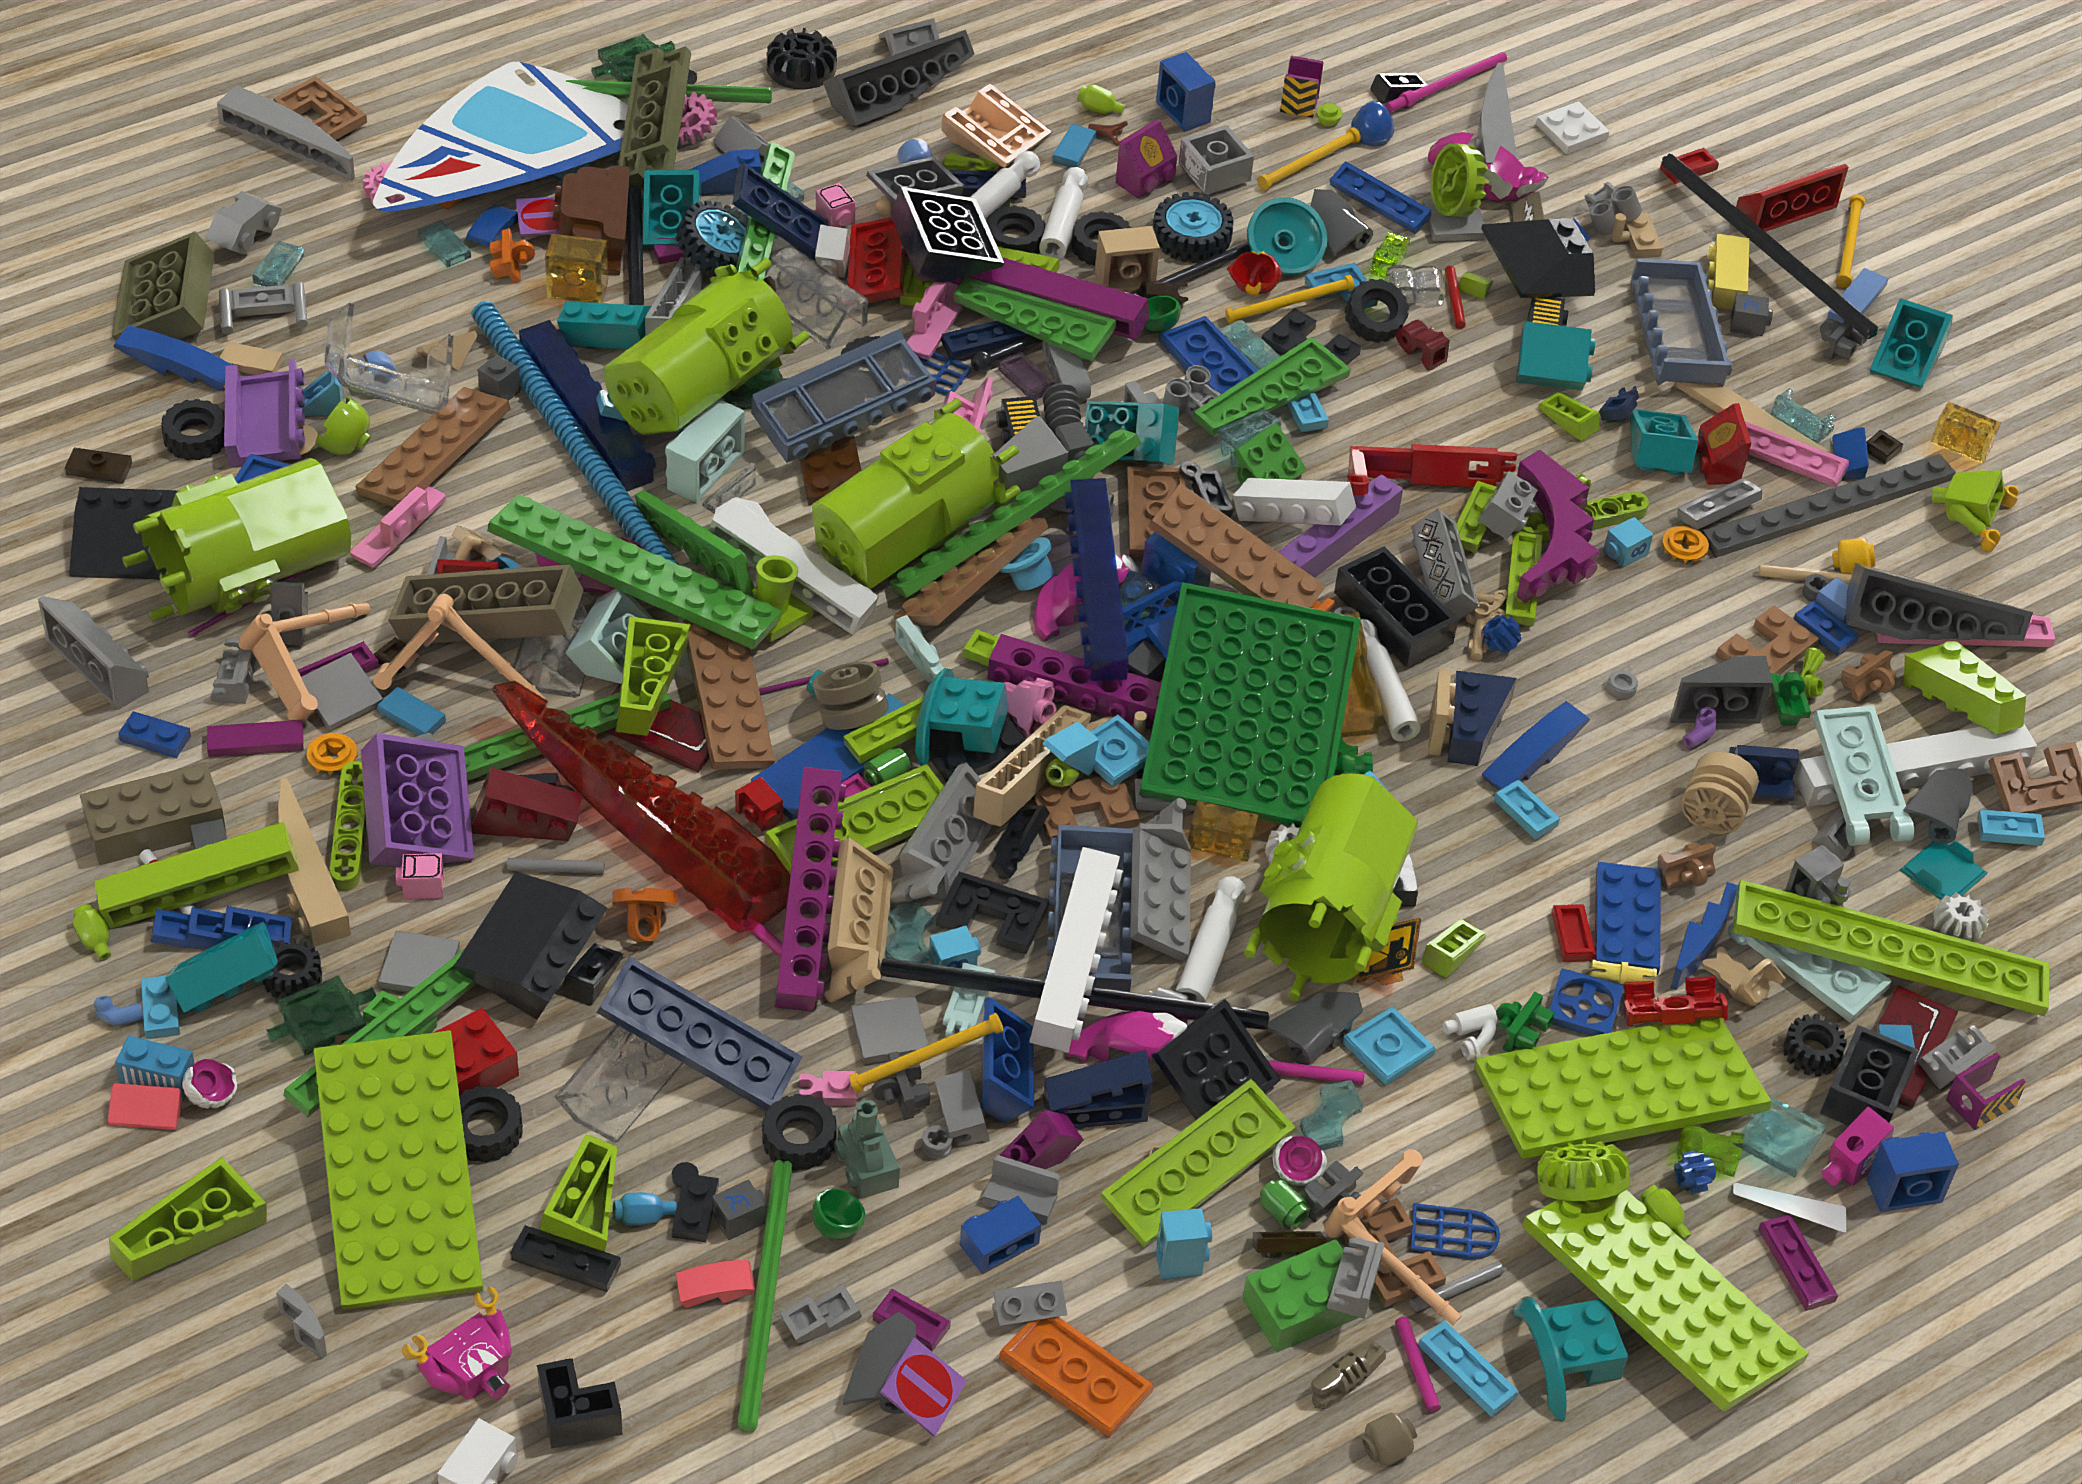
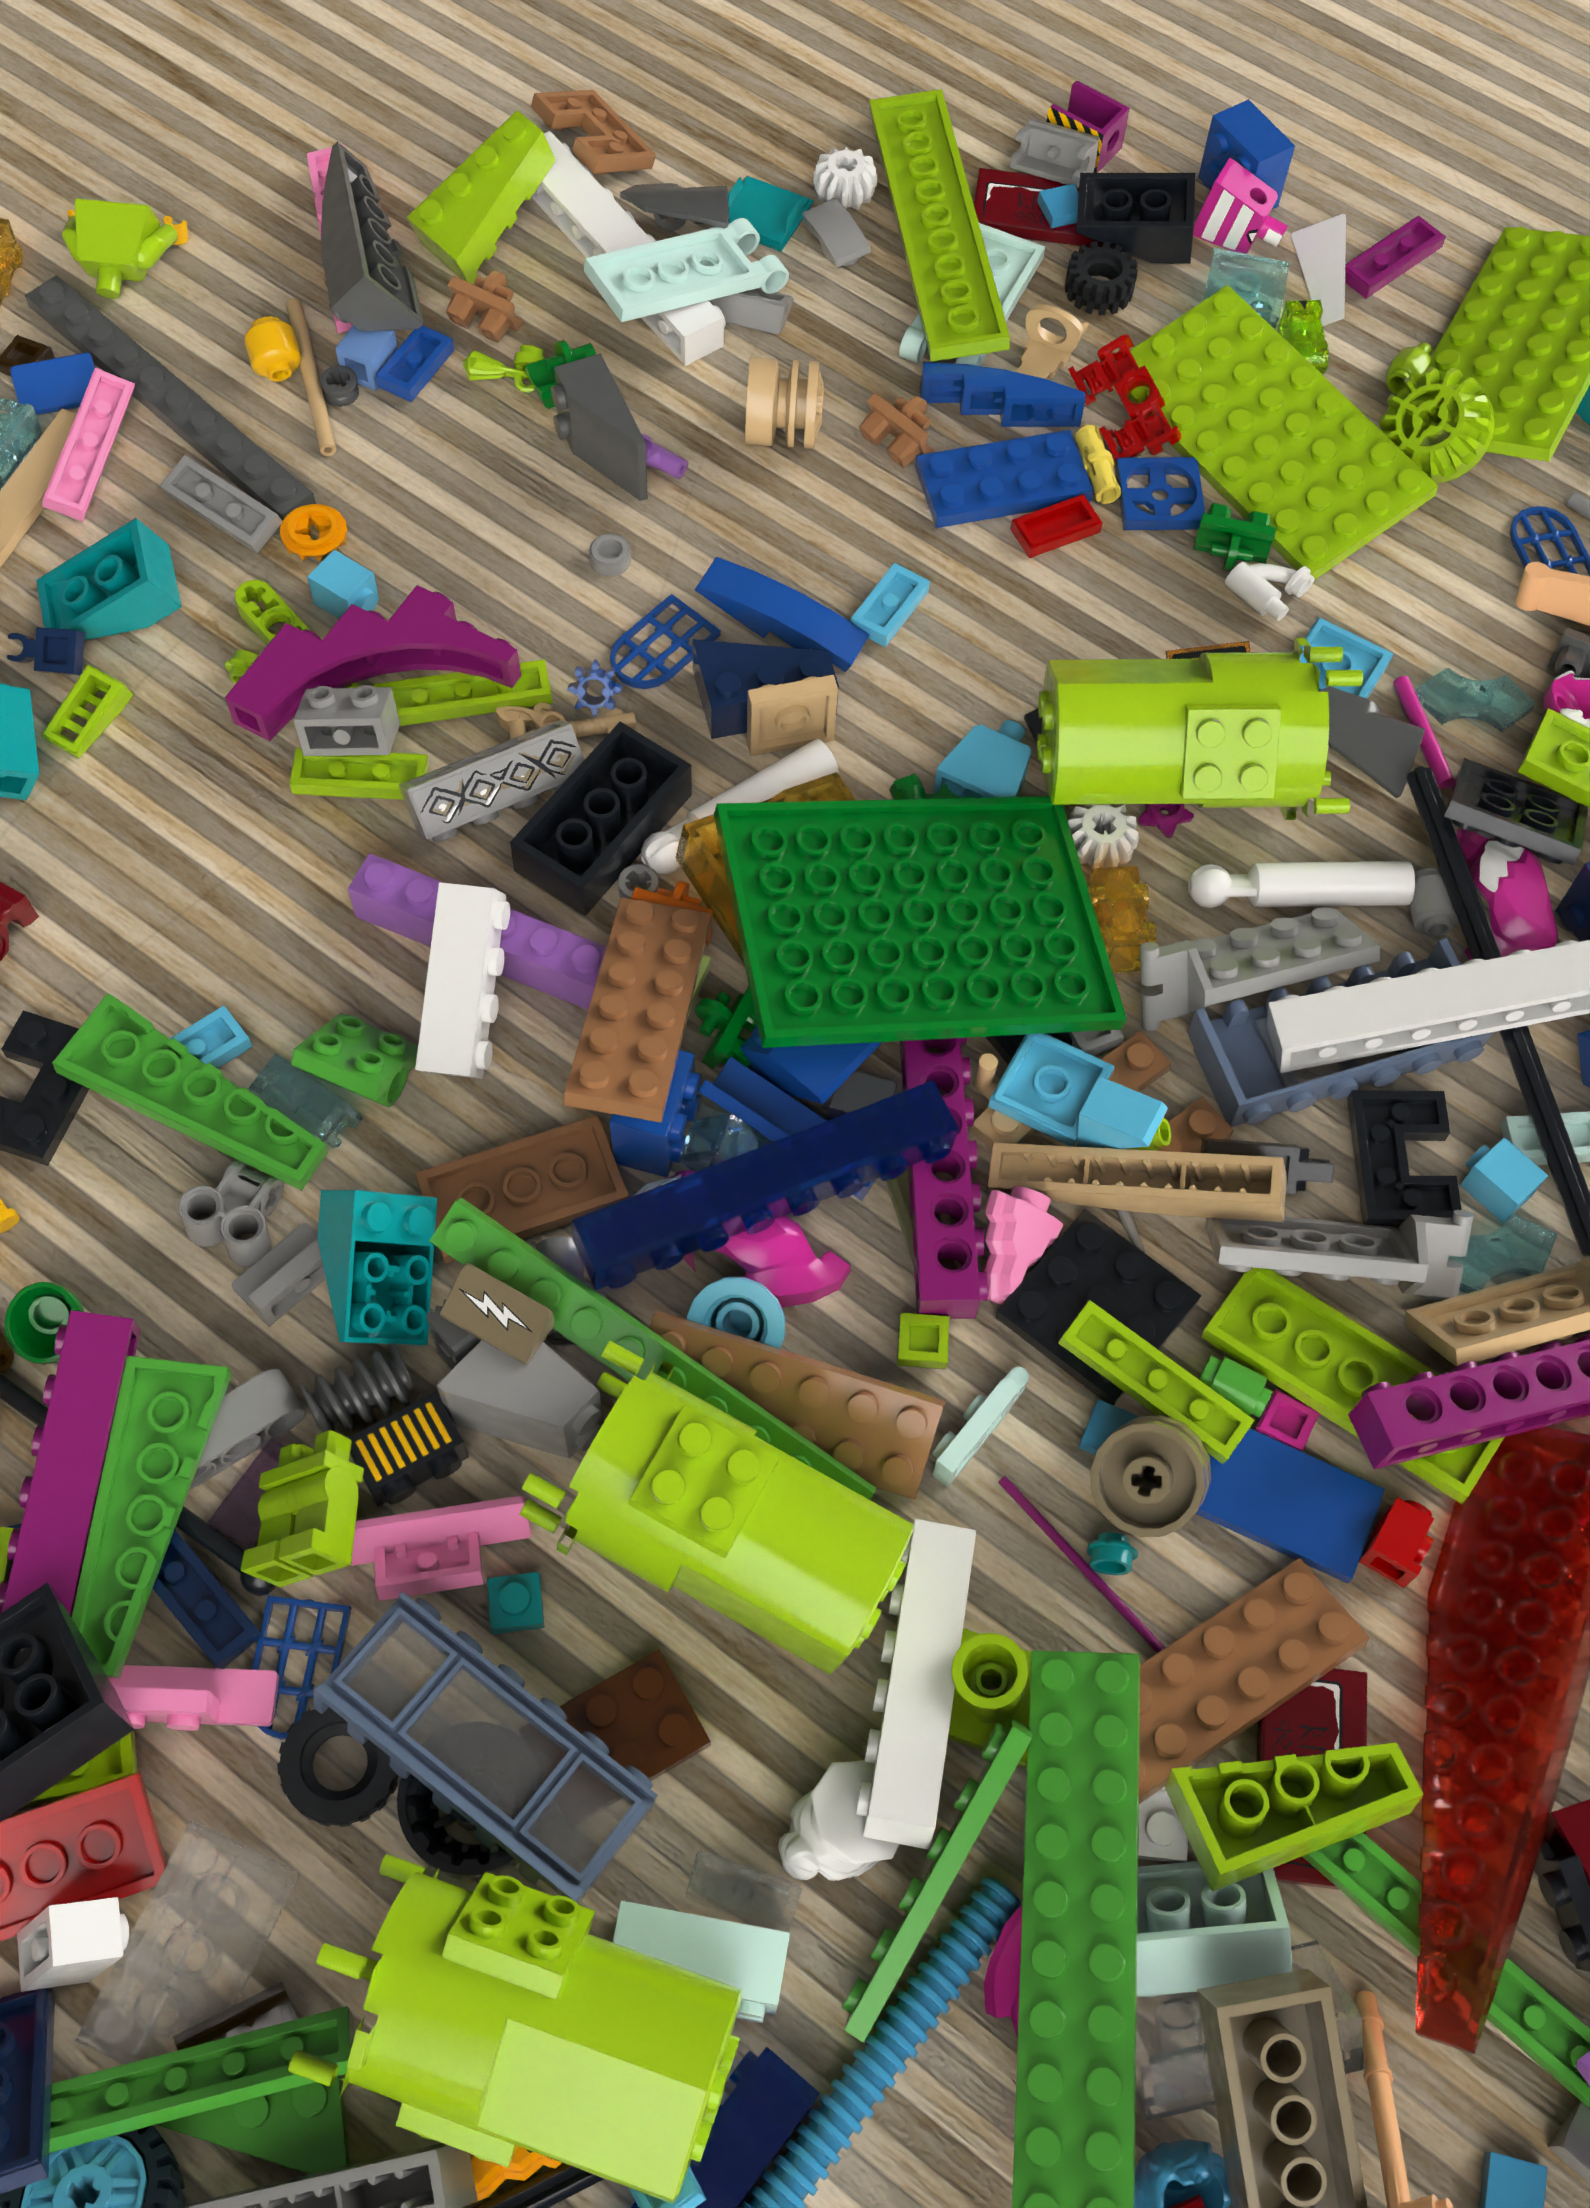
camera: 110 degrees left, 15 degrees up
(962, 706) = (1106, 1301): teal piece -> none
(1000, 368) = (306, 1512): none -> lime hips
(1067, 442) = (497, 1314): none -> dark tan slope
(1205, 345) = (120, 1218): blue tile -> none
(1208, 486) = (448, 1128): black hinge -> none
(1249, 344) = (80, 1163): clear light blue plate -> none
(1427, 465) = (287, 857): red hinge -> none
(1450, 950) = (1149, 647): lime slope -> none
(1536, 678) = (666, 628): none -> blue window
(1694, 1172) = (1349, 345): blue gear -> none
(1723, 446) = (110, 493): red slope -> none
(1774, 770) = (700, 385): dark blue bracket -> none
(1787, 644) = (502, 419): medium nougat plate -> none
(1818, 877) = (881, 292): flat silver brick -> none
(1896, 894) = (837, 233): none -> light grey slope
(2010, 827) = (675, 154): medium azure plate -> none

